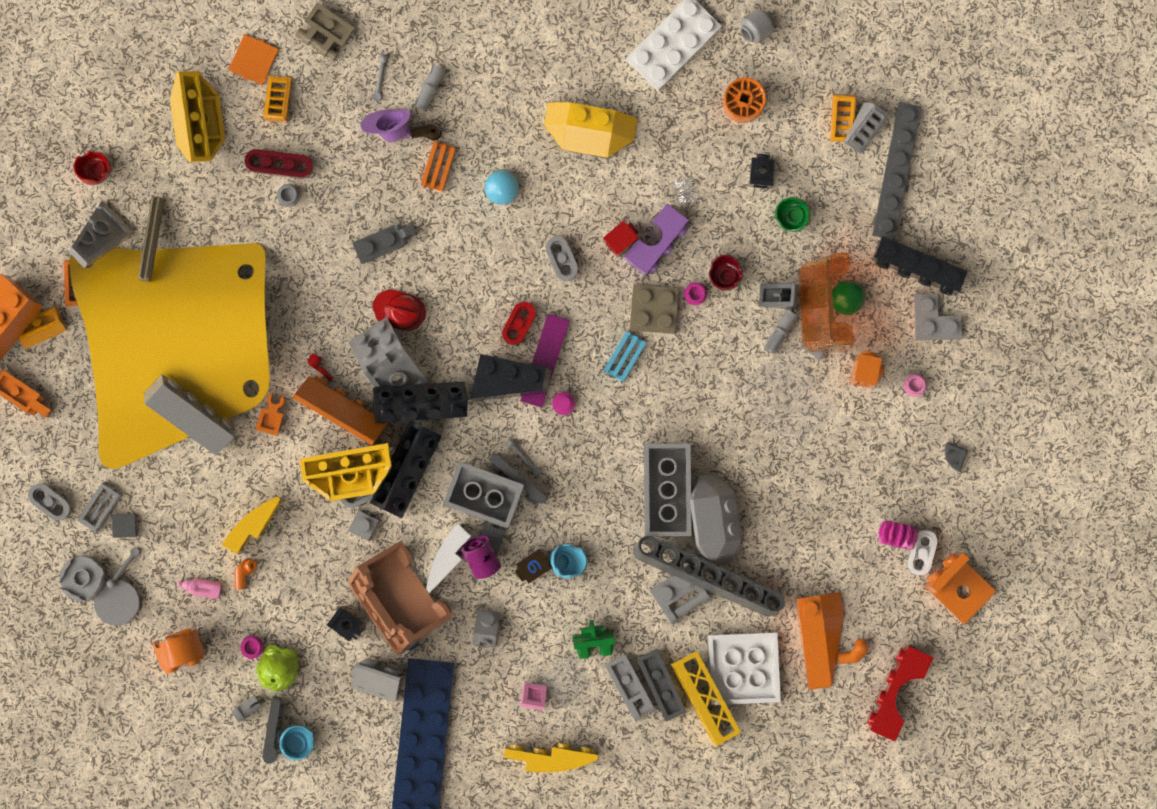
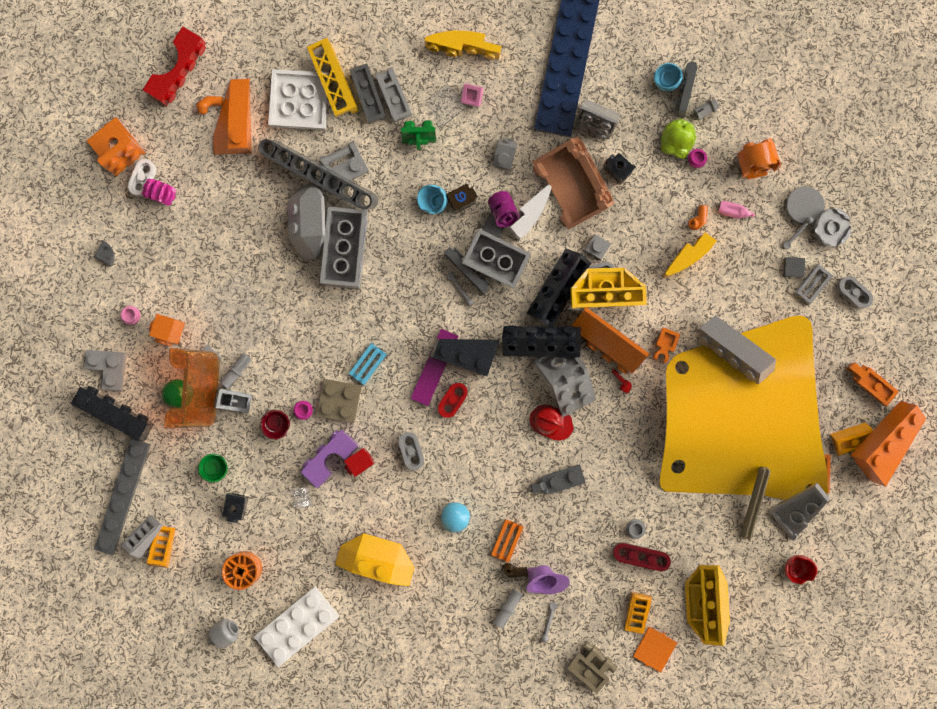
camera: 175 degrees left, 0 degrees up
(563, 403) = (422, 330): dark pink plate -> none

